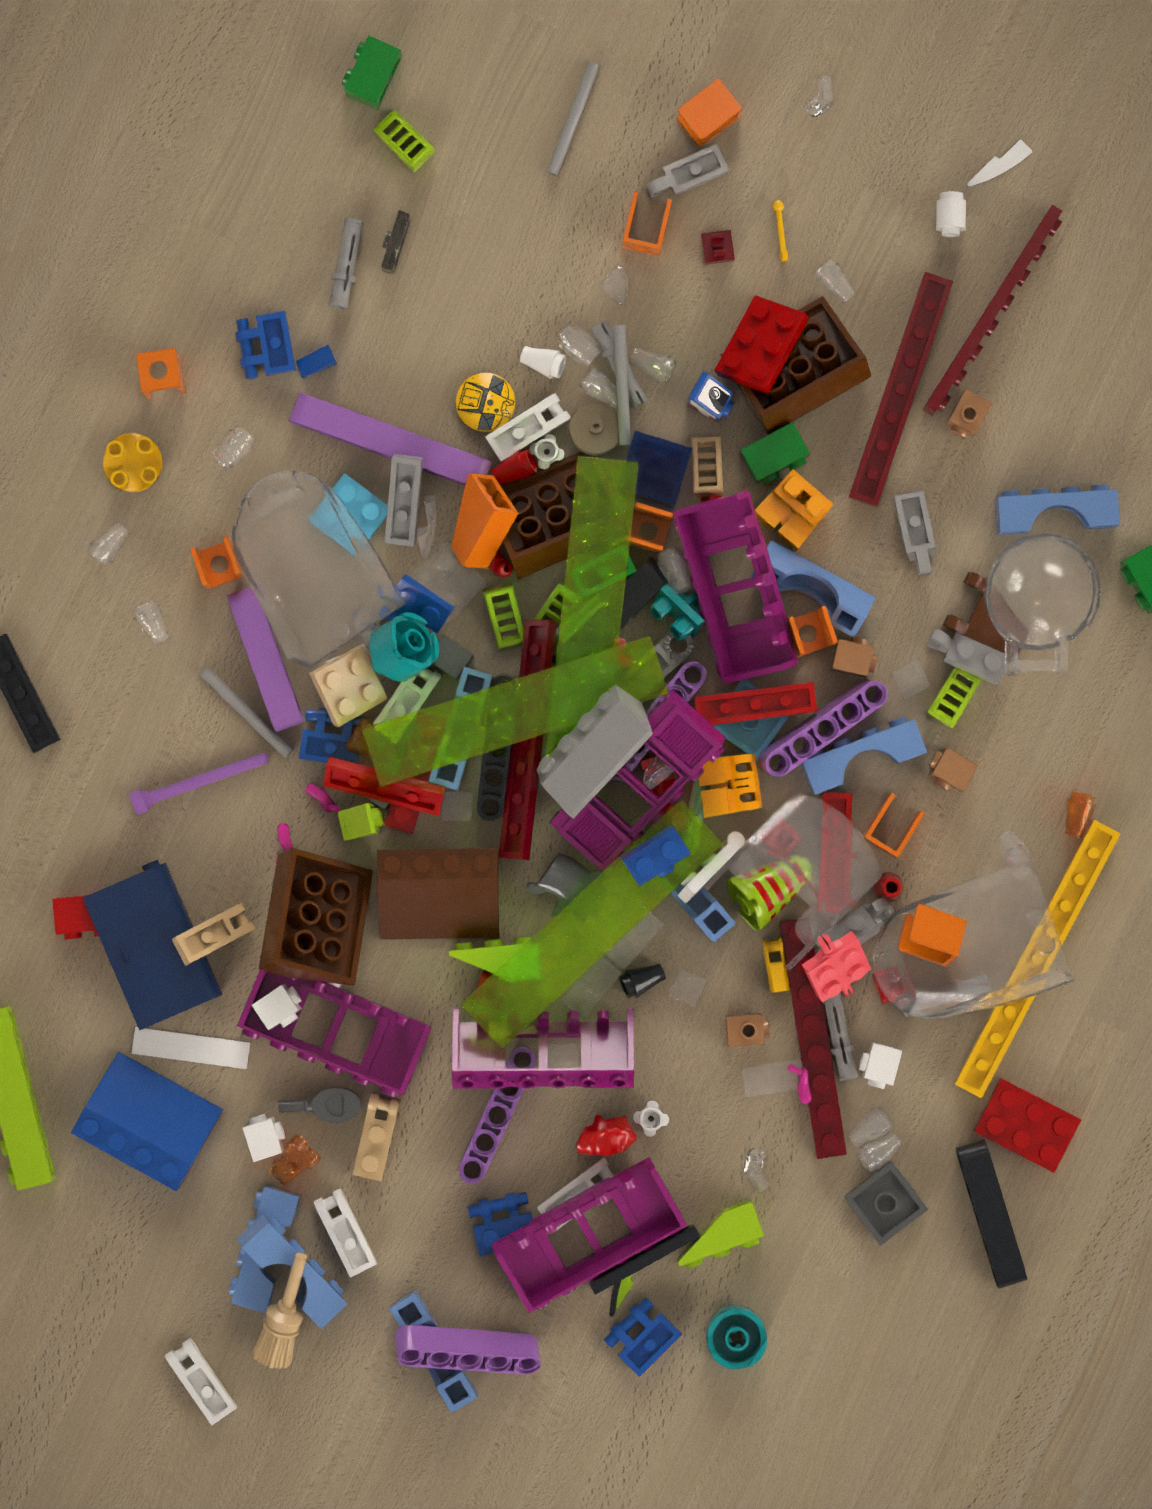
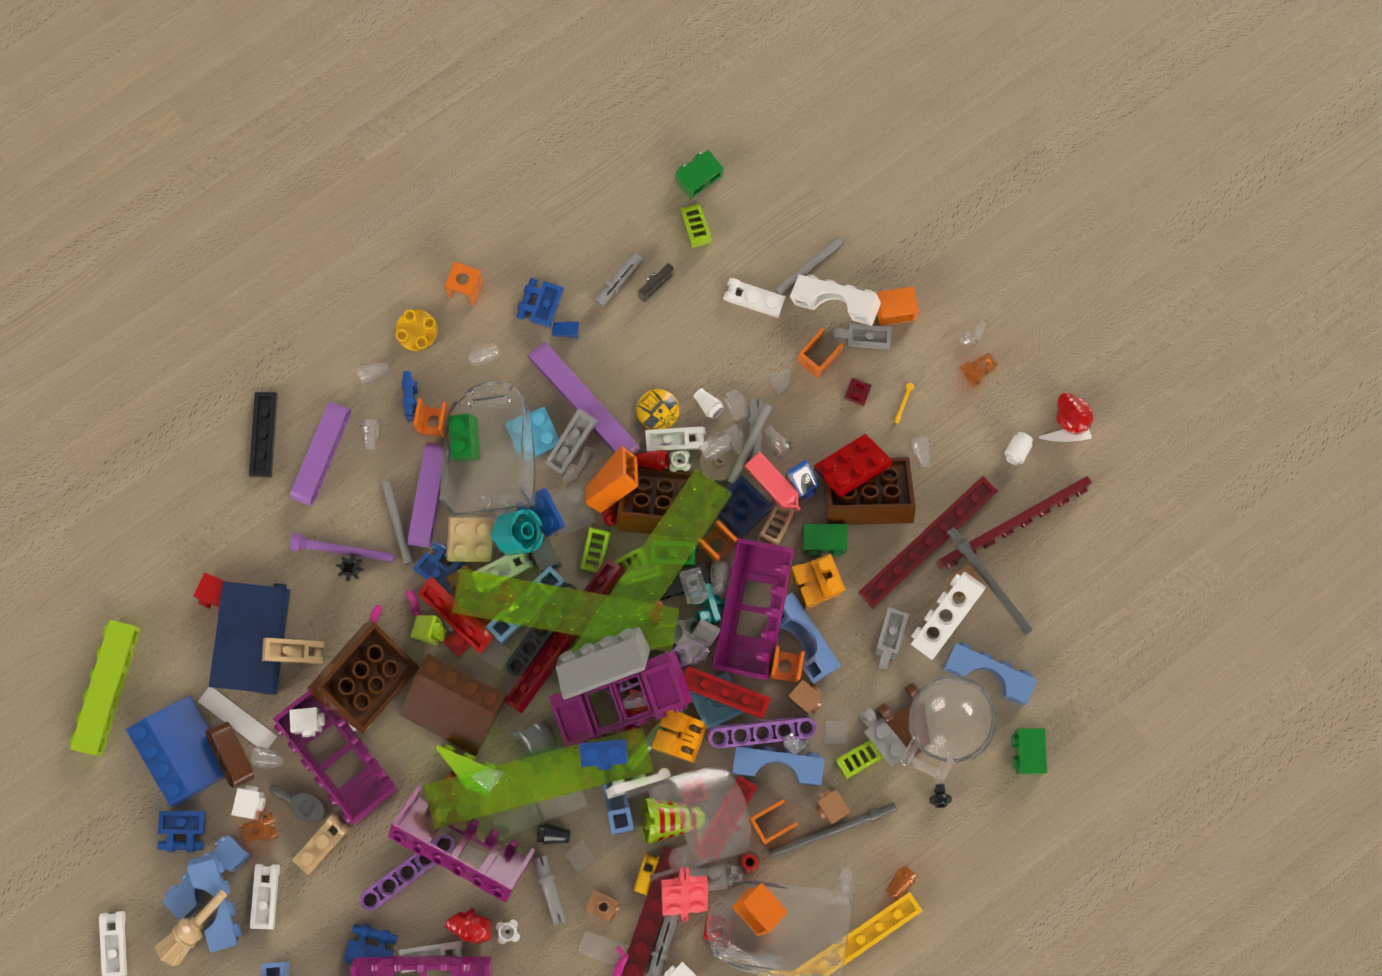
camera: 30 degrees right, 10 degrees down
(105, 679) = (320, 453): none -> medium lavender beam
(169, 541) = (409, 388): none -> blue plate
(199, 1202) = (181, 823): none -> blue plate
(209, 1094) = (229, 754): none -> reddish brown beam
(214, 799) = (356, 569): none -> black gear
(253, 1075) = (266, 758): none -> clear cone
(270, 566) = (464, 437): none -> green brick
(527, 196) = (754, 298): none -> white plate
(534, 957) = (488, 778): none -> clear tile
(583, 410) = (716, 446): none -> clear brick
(594, 152) = (811, 292): none -> white arch
(651, 598) = (693, 586): none -> clear brick
(673, 1044) = (549, 889): none -> light grey pin
(676, 418) = (772, 482): none -> coral piece
(689, 674) = (691, 648): none -> clear brick
(693, 646) = (706, 631): none -> light grey tile
(848, 145) = (974, 372): none -> clear orange plate
(872, 722) = (794, 745): none -> clear arm
(949, 374) = (964, 547): none -> dark grey bar
(970, 515) = (931, 645): none -> white brick
(996, 134) = (1073, 414): none -> red hair
(1005, 753) = (873, 814): none -> dark grey bar
(1073, 692) = (940, 799): none -> black plate

